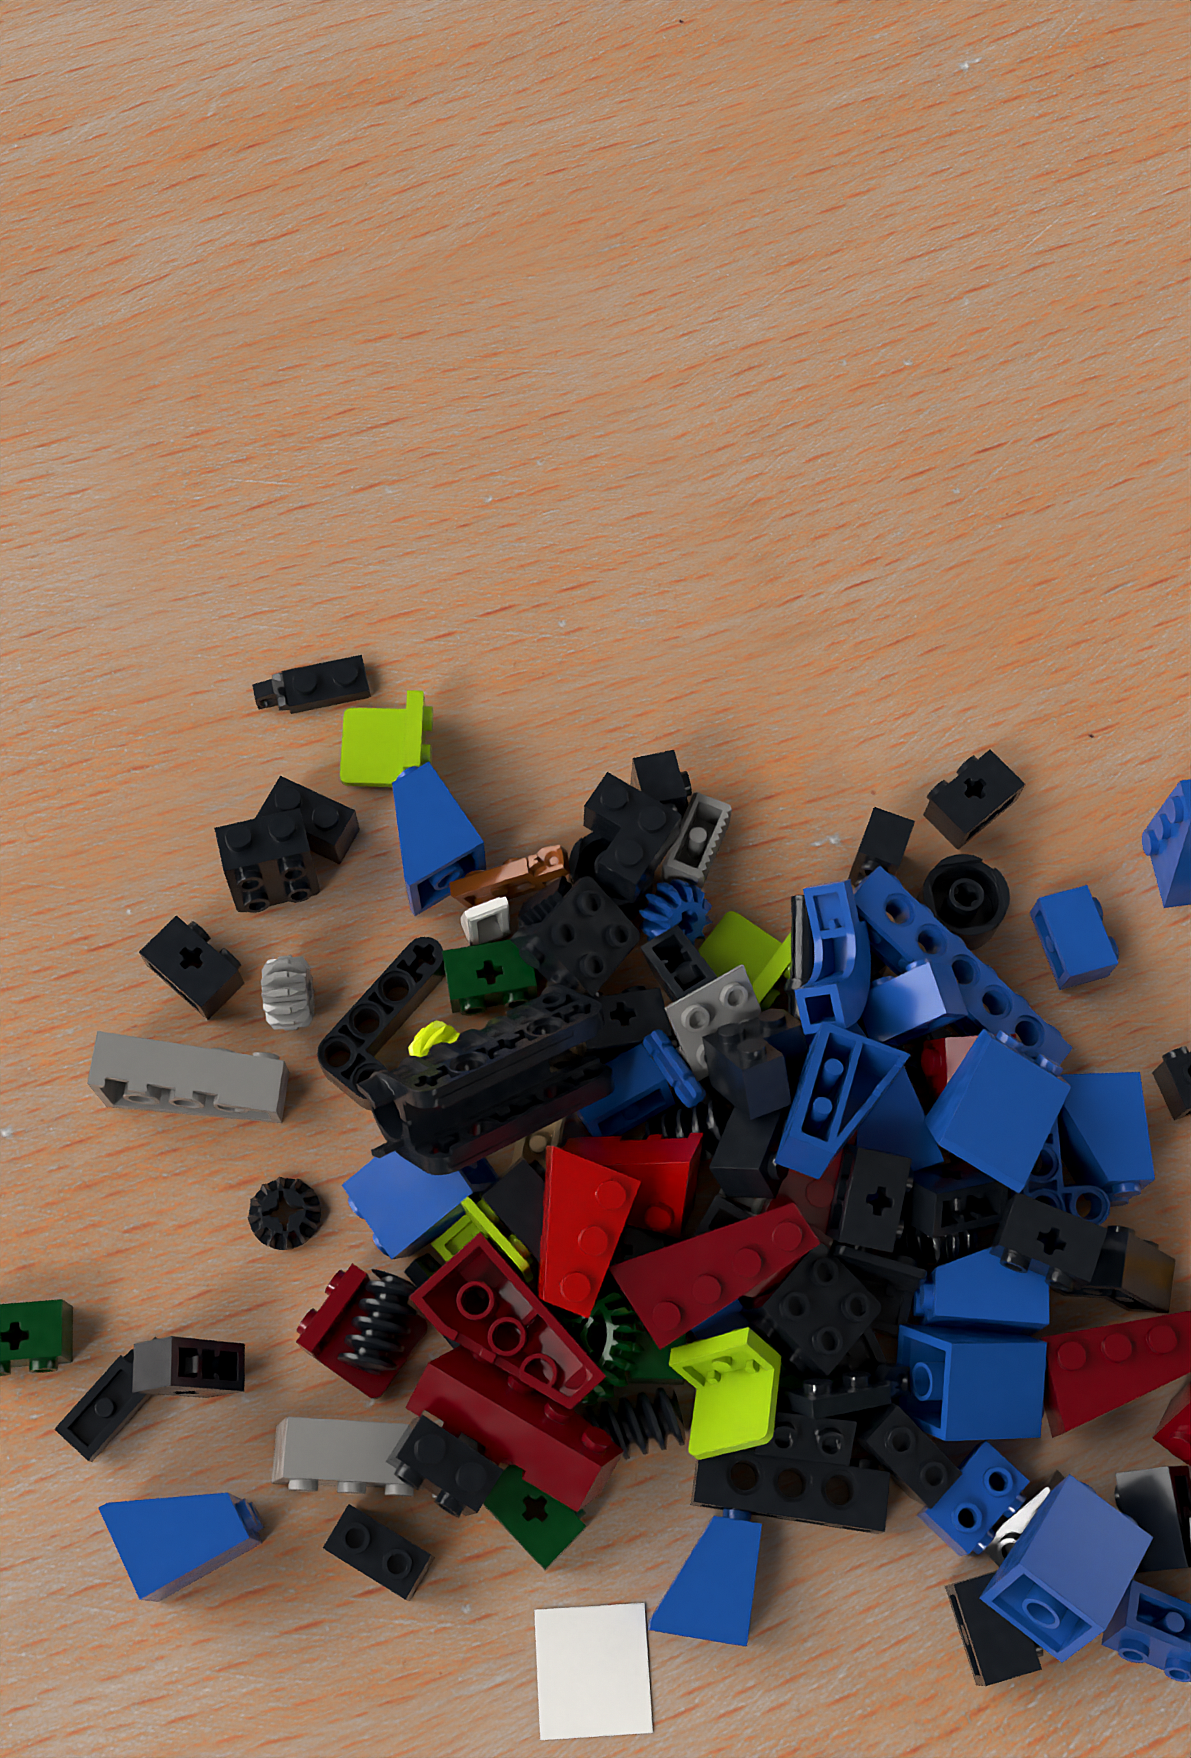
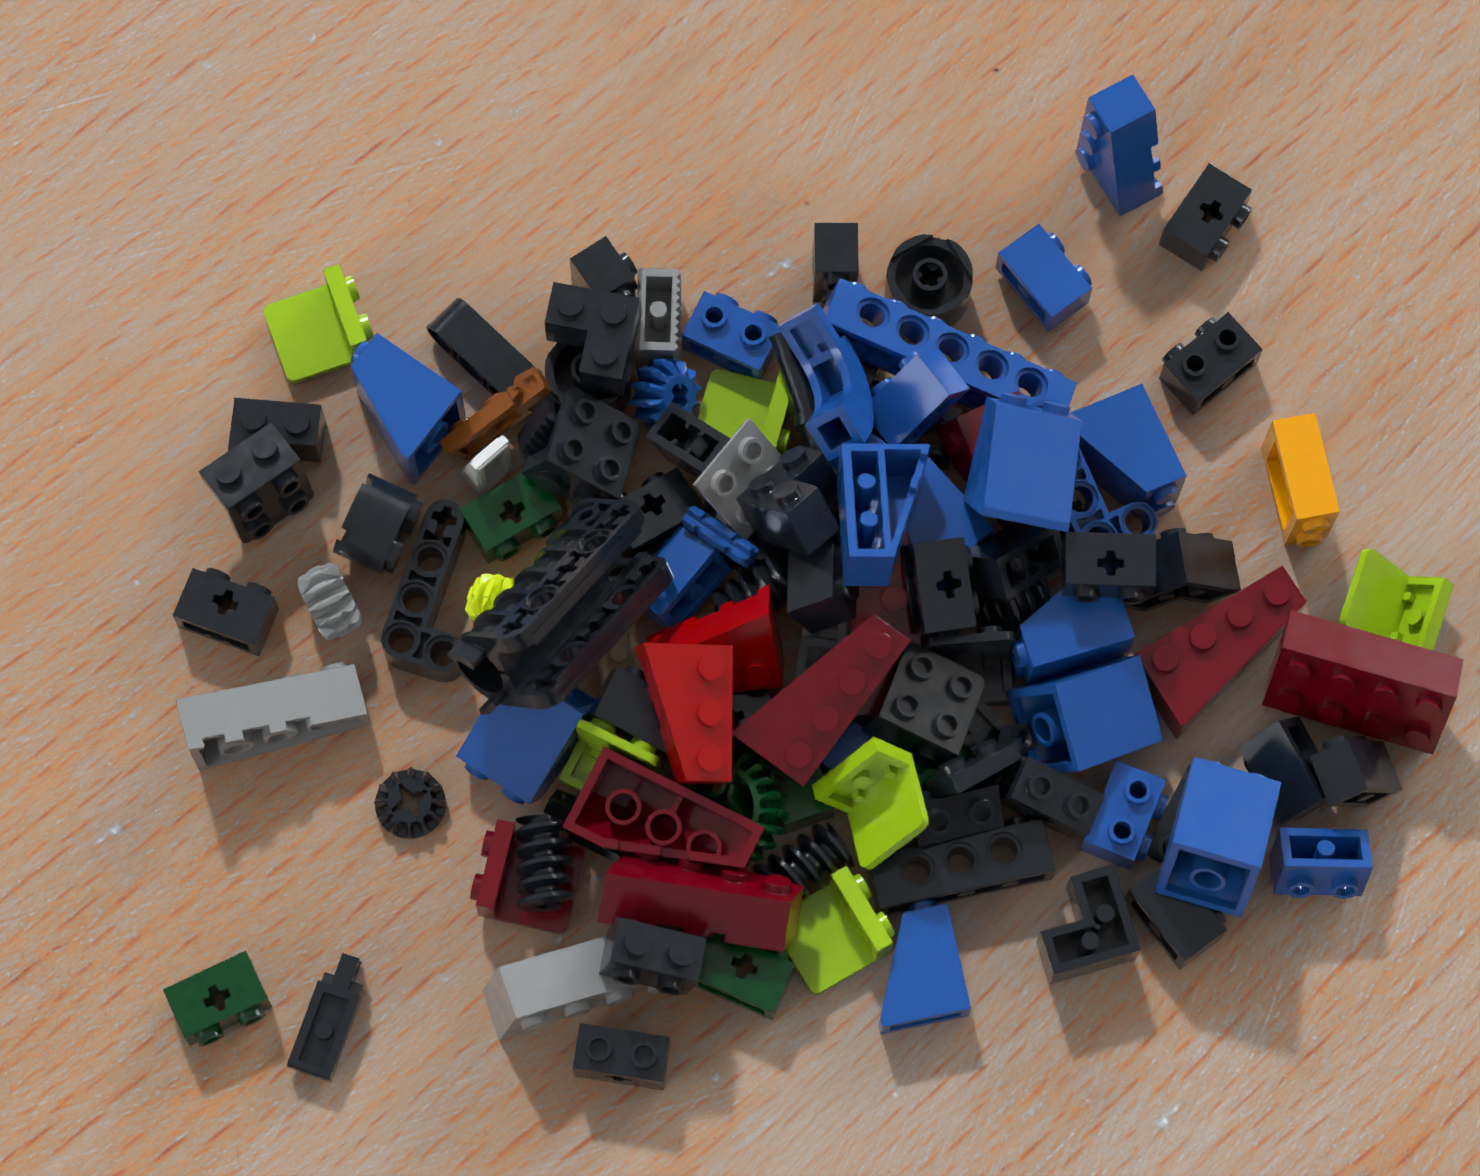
camera: 20 degrees left, 5 degrees up
(179, 1538) = (444, 1106): blue slope -> none
(188, 1367) = (388, 964): black brick -> none
(314, 686) = (222, 295): black hinge -> none
(360, 938) = (377, 523): none -> black brick
(521, 810) = (477, 347): none -> black beam
(593, 1671) = (846, 1085): white sticker -> none
(642, 1509) = (838, 933): none -> lime bracket
(756, 884) = (730, 335): none -> blue brick
(910, 1616) = (1098, 937): none -> black brick
(962, 817) = (897, 198): black brick -> none

